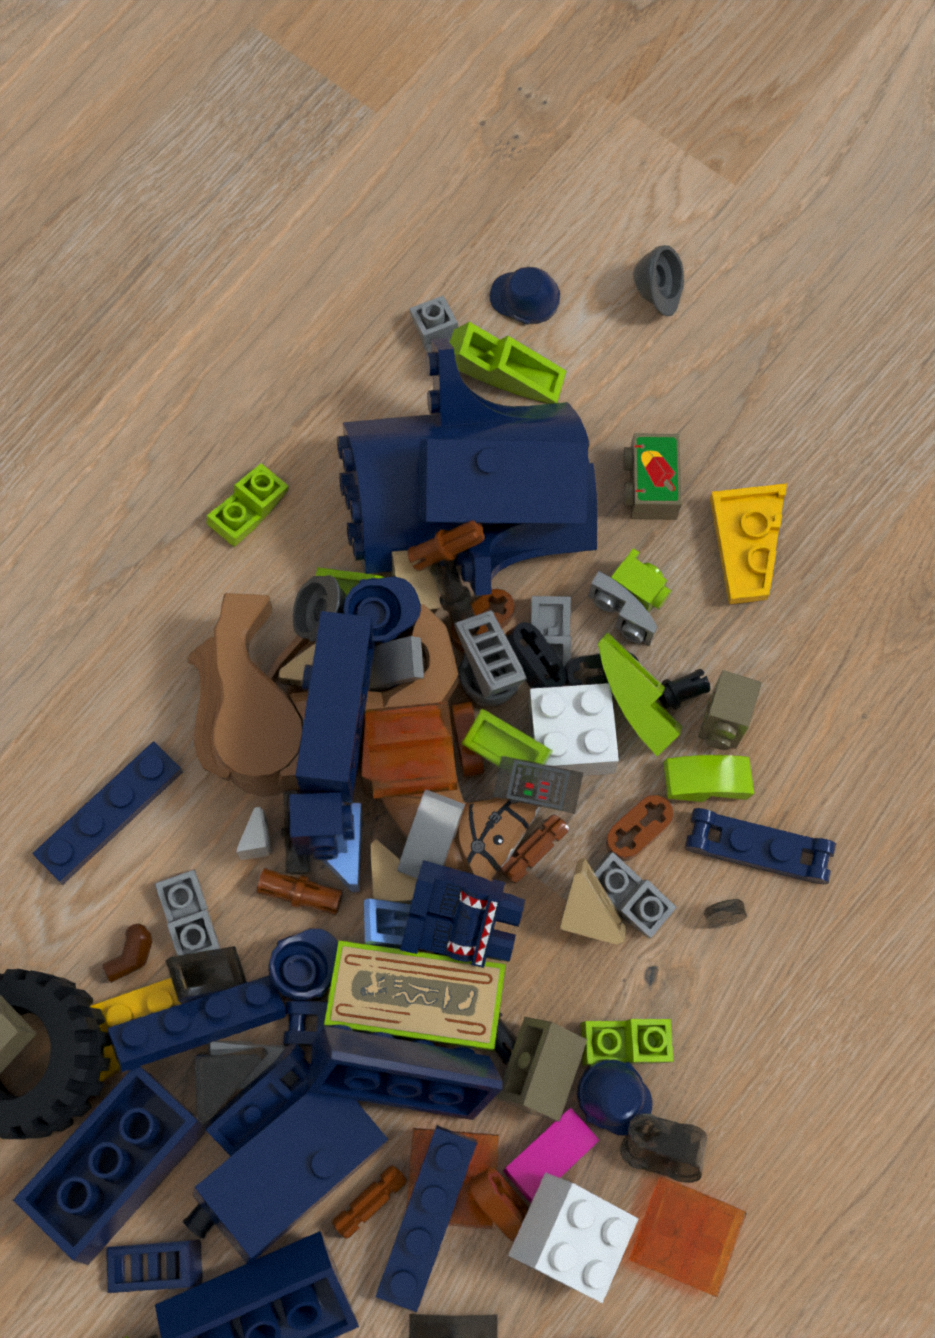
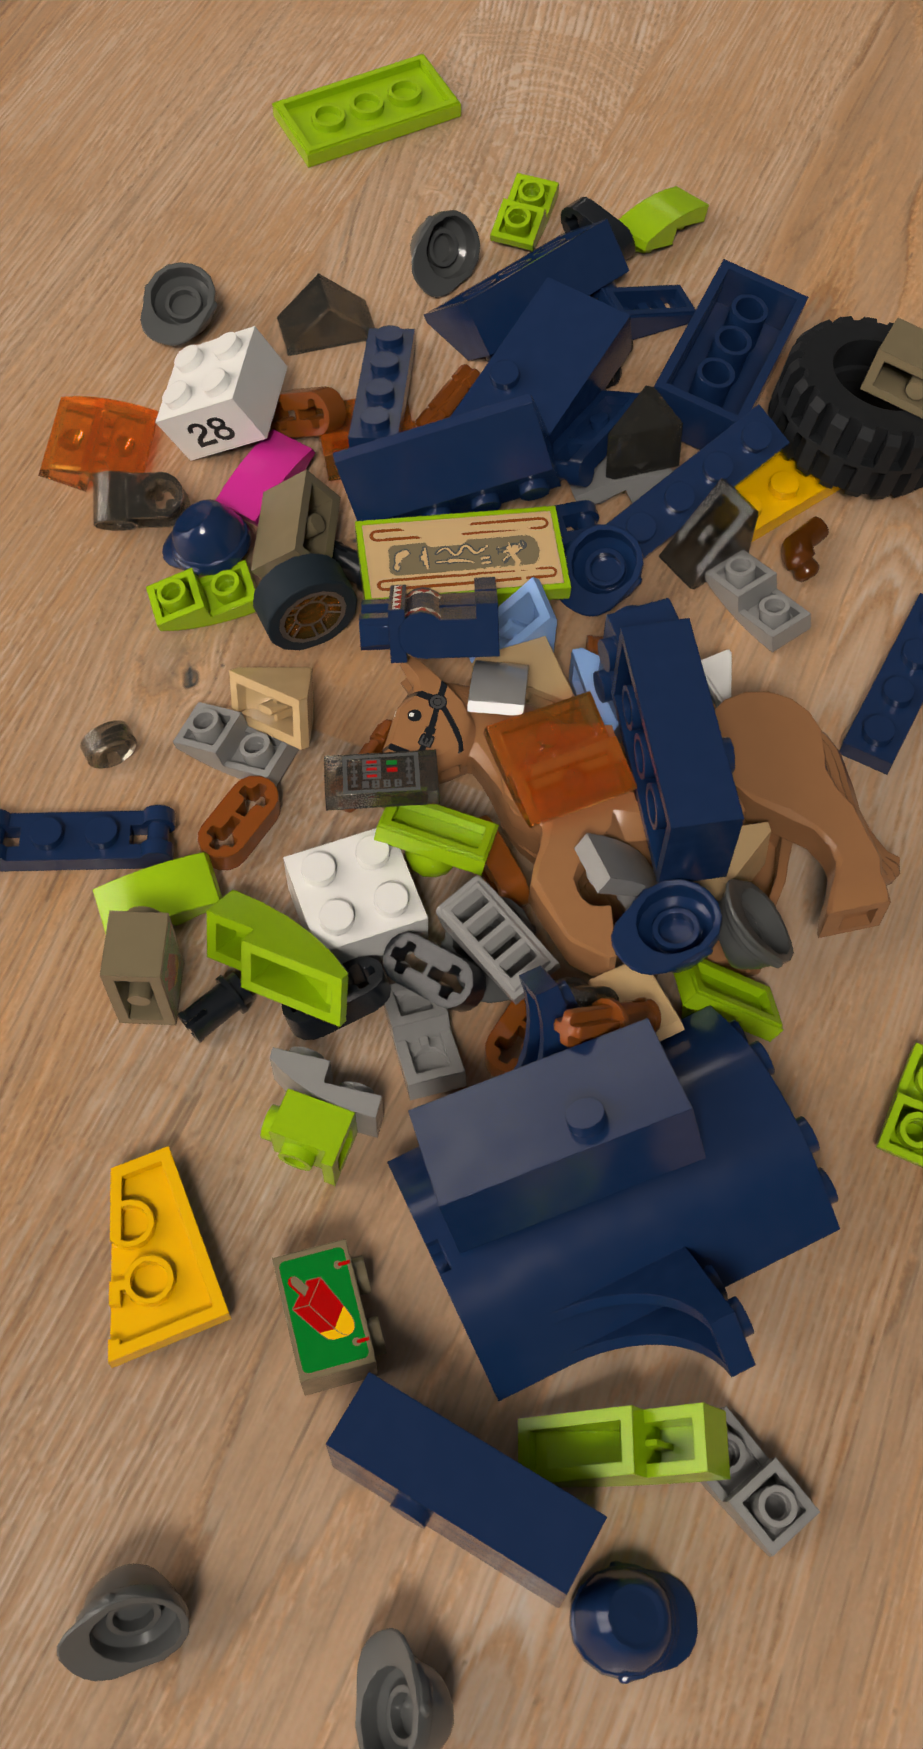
camera: 165 degrees right, 10 degrees down
(550, 991) = (304, 601): none -> black wheel
(602, 356) = (464, 1489): none -> dark blue brick
(793, 358) = (125, 1625): none -> dark grey hat

